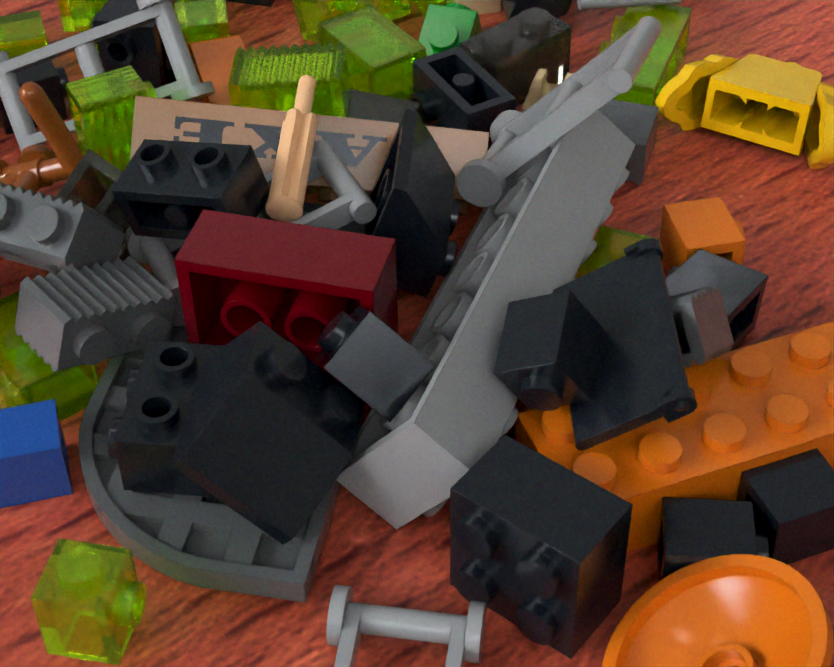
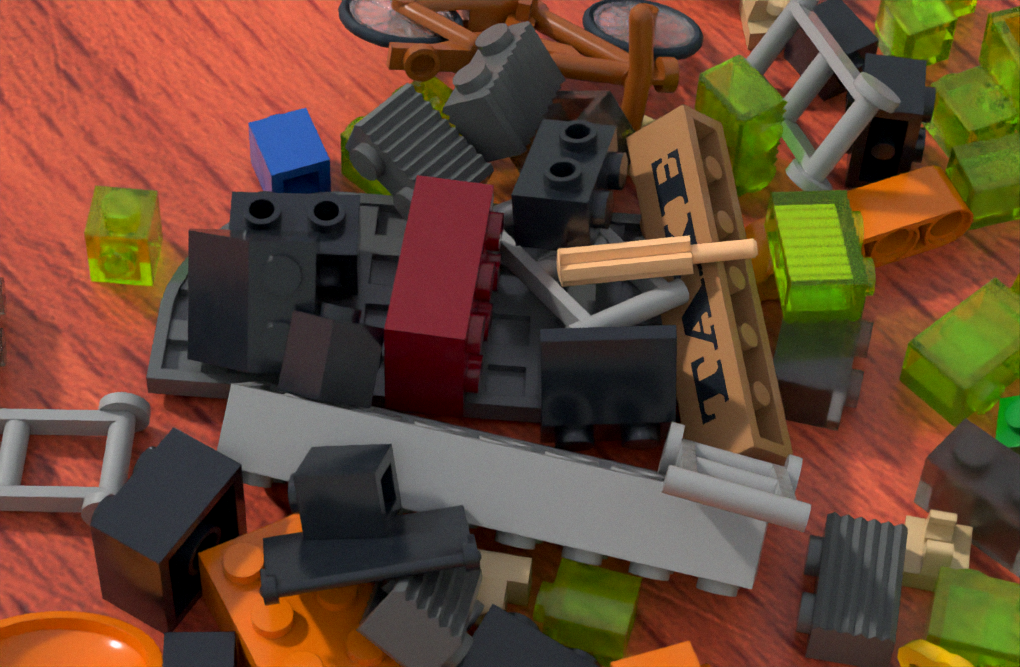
camera: 80 degrees right, 10 degrees up
(458, 92) = (866, 442): black brick -> none

